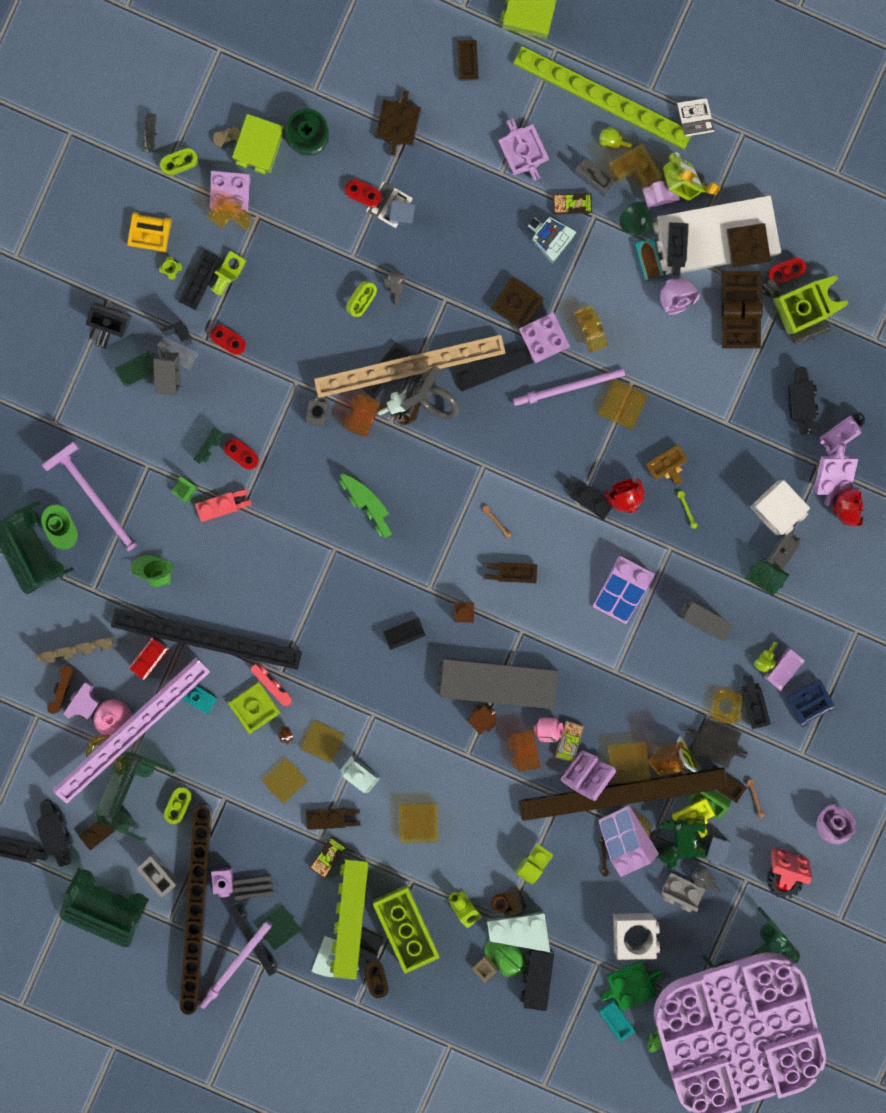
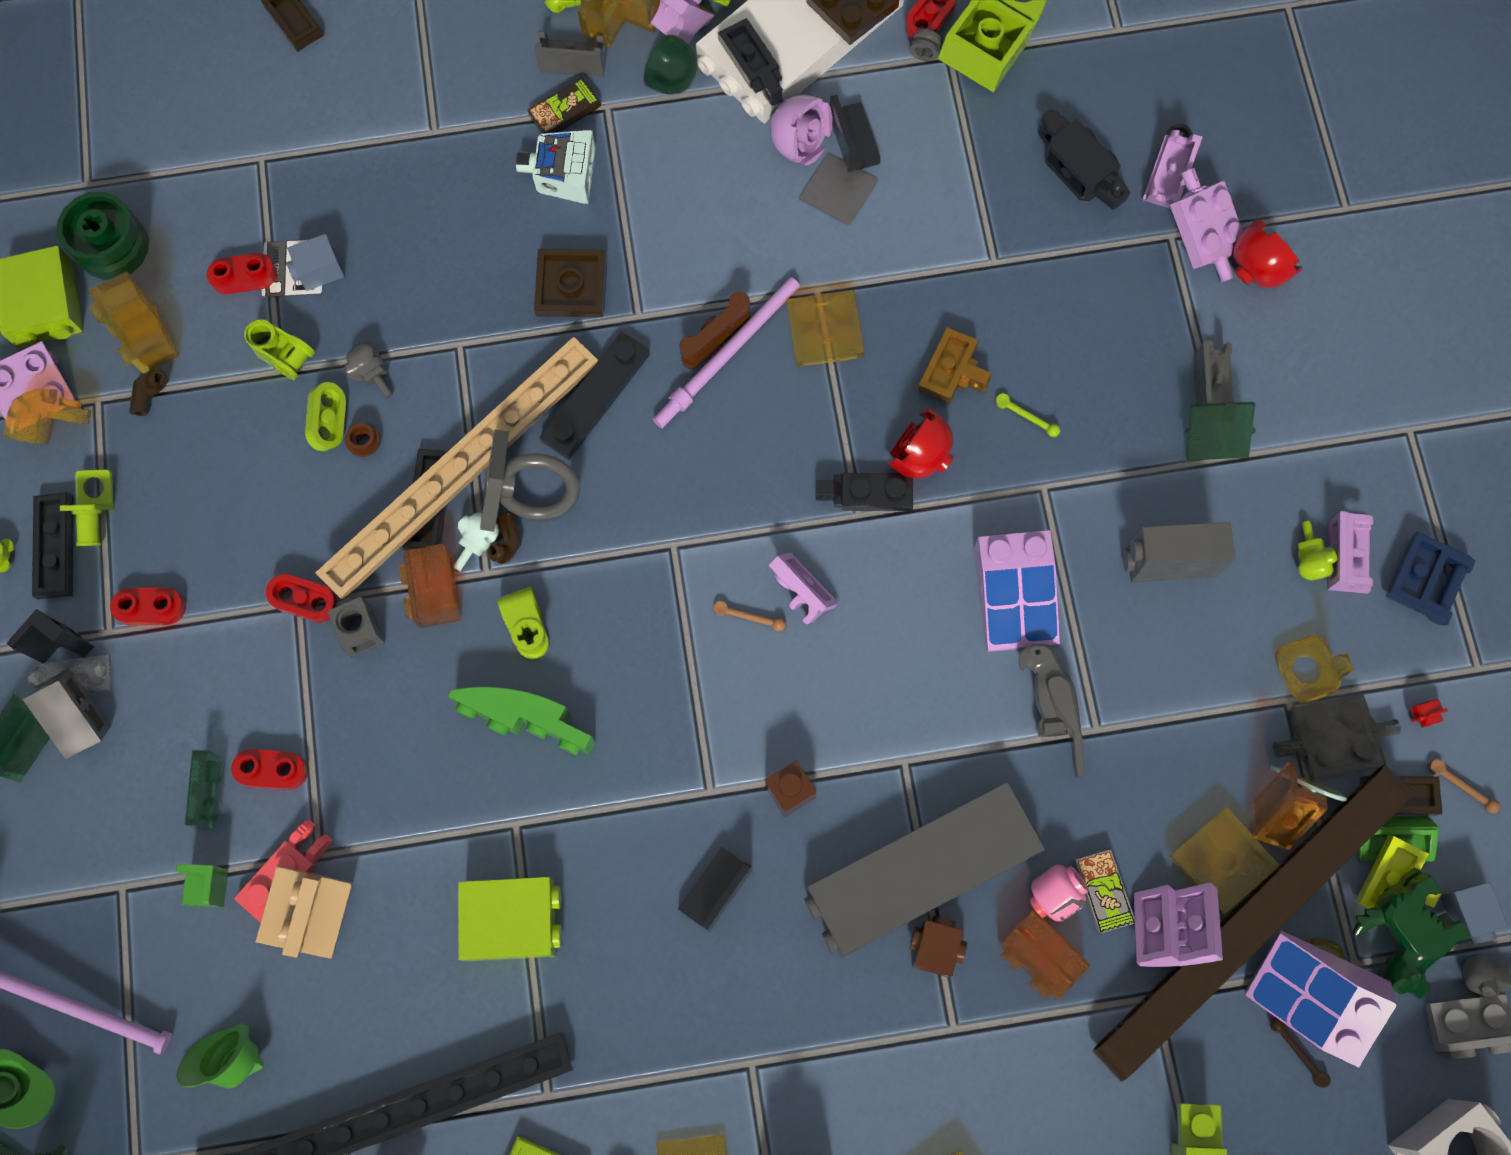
camera: 30 degrees left, 15 degrees down
(222, 530) = (303, 912): none -> tan bracket
(272, 685) = (545, 1129): coral hinge -> none
(284, 226) = (145, 388): none -> dark brown arm
(298, 189) = (135, 321): none -> clear yellow brick
(300, 383) = (304, 597): none -> red plate
(308, 589) = (508, 919): none -> lime brick
(359, 250) = (282, 350): none -> lime piece
(367, 316) = (358, 431): none -> reddish brown plate
(394, 457) = (523, 619): none -> lime piece
(398, 122) = (237, 151): dark brown plate -> none
(513, 572) = (826, 676): dark brown hinge -> none
(523, 150) = (445, 79): lavender plate -> none
(530, 523) = (810, 591): none -> lavender plate
(544, 337) = (642, 302): lavender hinge -> none
(569, 374) = (715, 331): none -> reddish brown plate
(591, 328) = (706, 247): clear yellow brick -> none
(605, 647) = (1054, 699): none -> dark grey animal
(649, 259) = (725, 114): tile -> none
(678, 335) = (837, 190): none -> flat silver sticker
(703, 313) = (853, 135): none -> black panel
(741, 309) = (905, 98): dark brown plate -> none
(755, 703) = (1348, 634): black hinge -> none
(763, 758) = (1428, 712): none -> red plate
(780, 508) = (1166, 318): white brick -> none
(810, 332) = (1024, 69): clear smoke axle -> none

